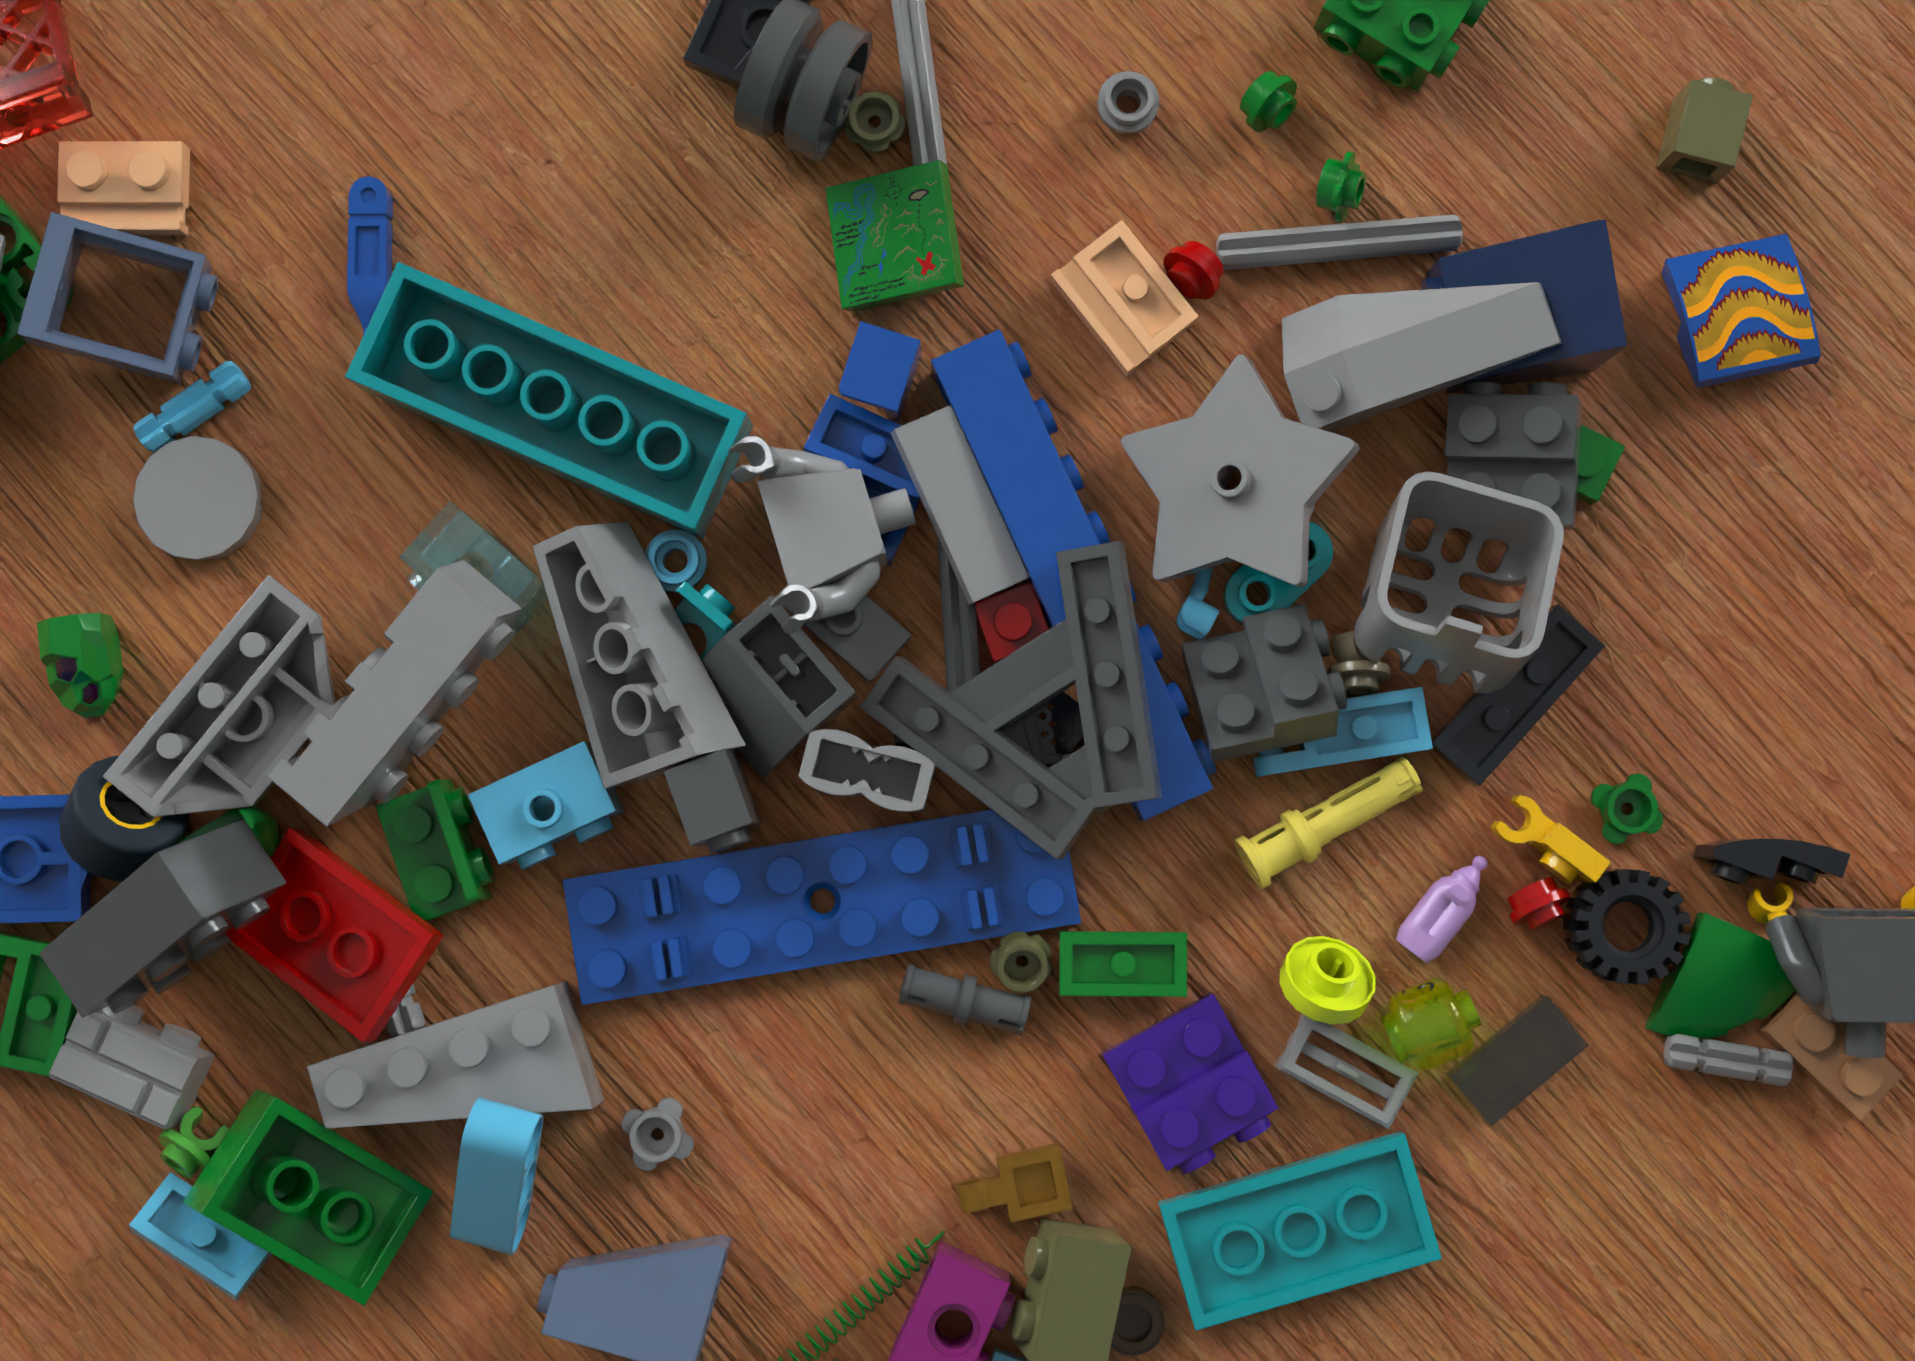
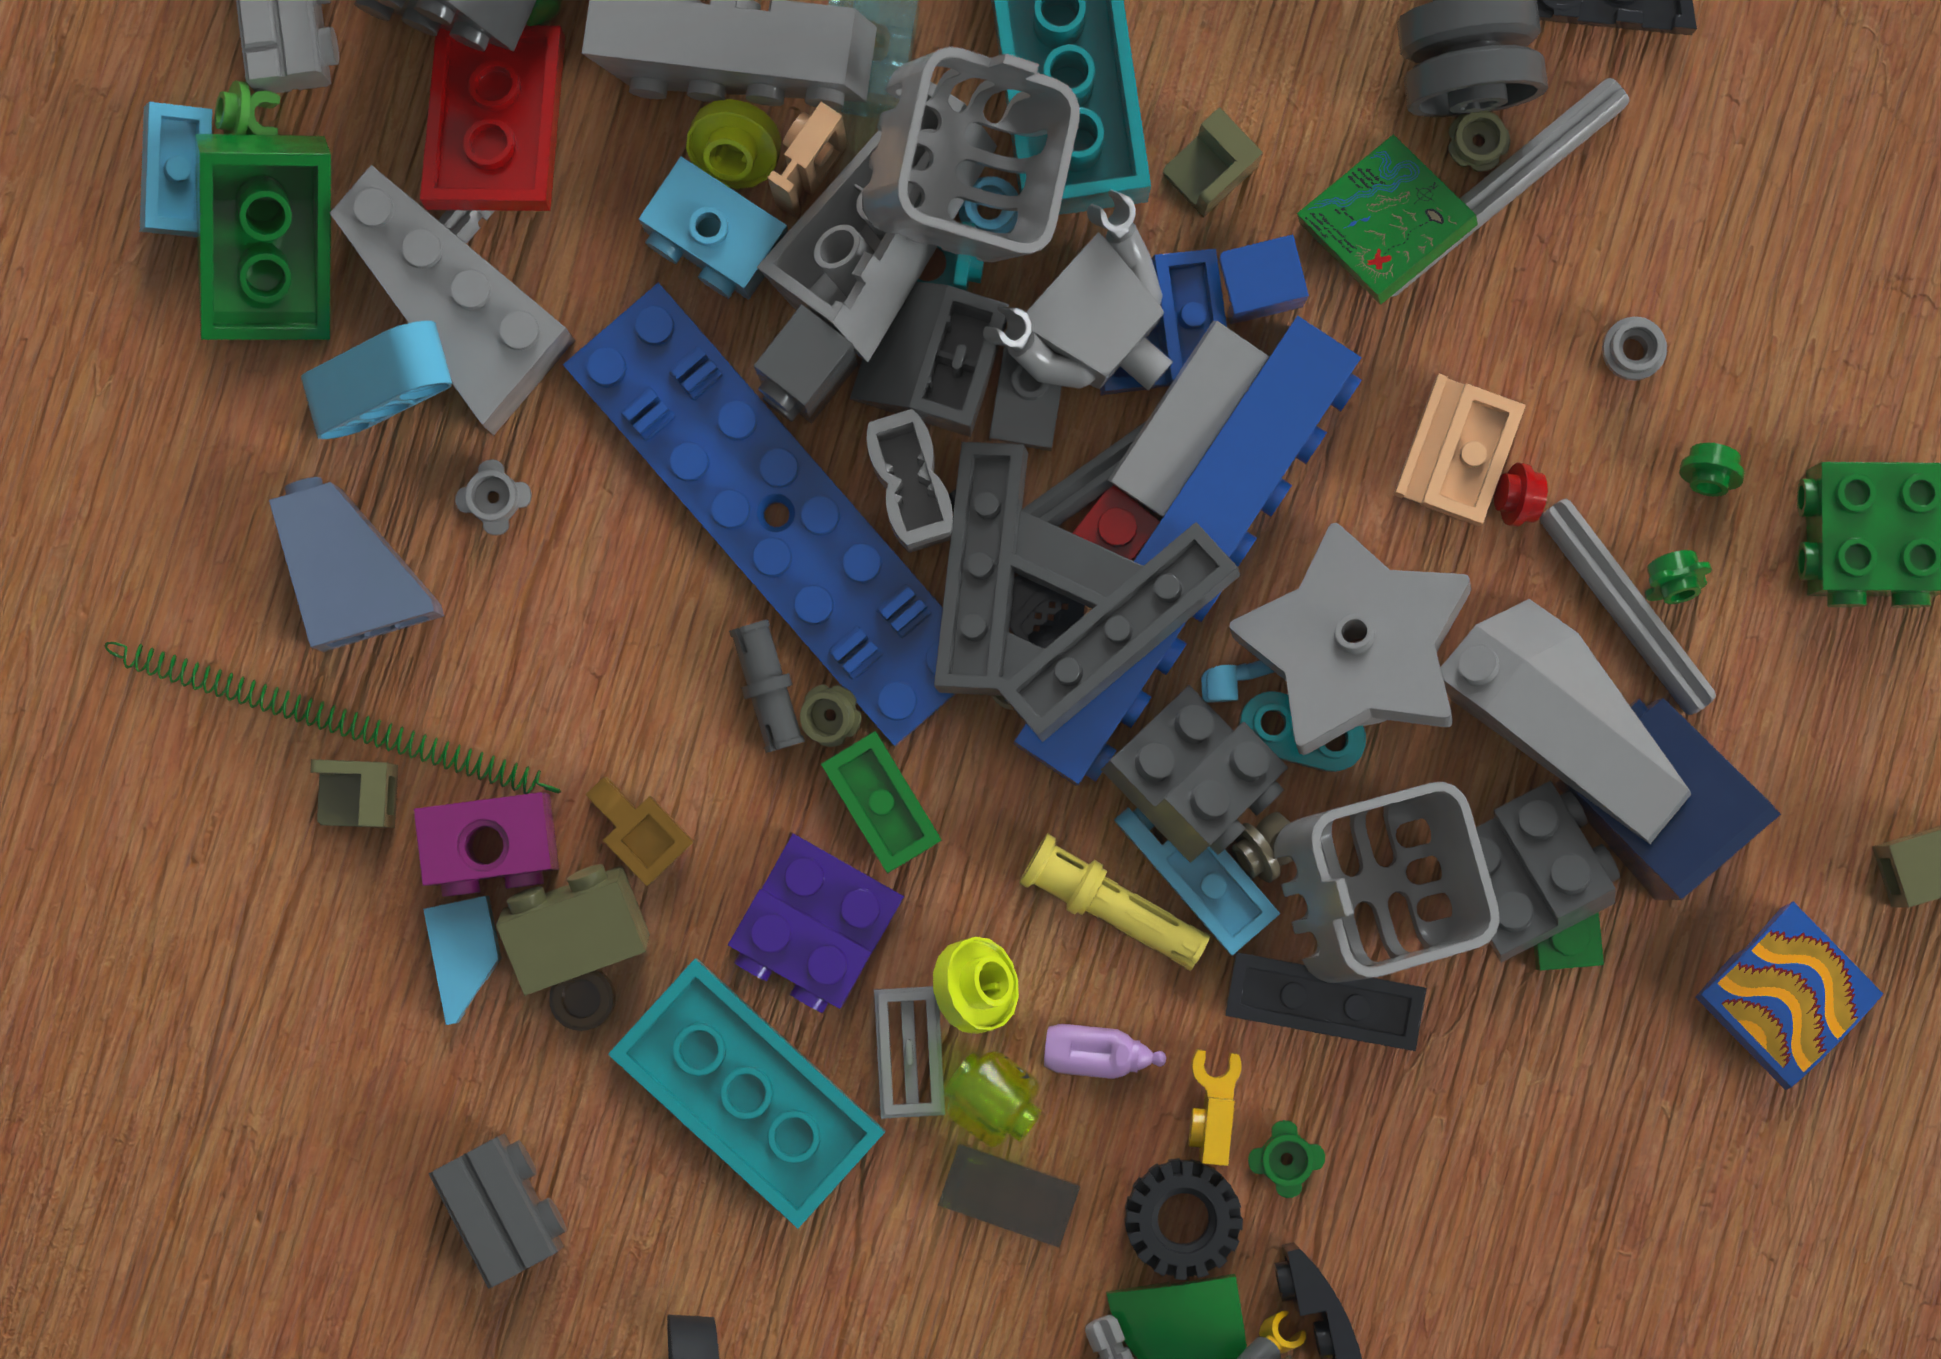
camera: 60 degrees right, 0 degrees up
(436, 849) = (617, 160): green bracket -> none
(484, 742) = (734, 143): none -> neon yellow plate
(534, 680) = (812, 151): none -> light nougat plate
(622, 468) = (1039, 109): none -> light grey piece
(755, 351) = (1213, 162): none -> olive panel
(1538, 904) = (1154, 1129): red plate -> none

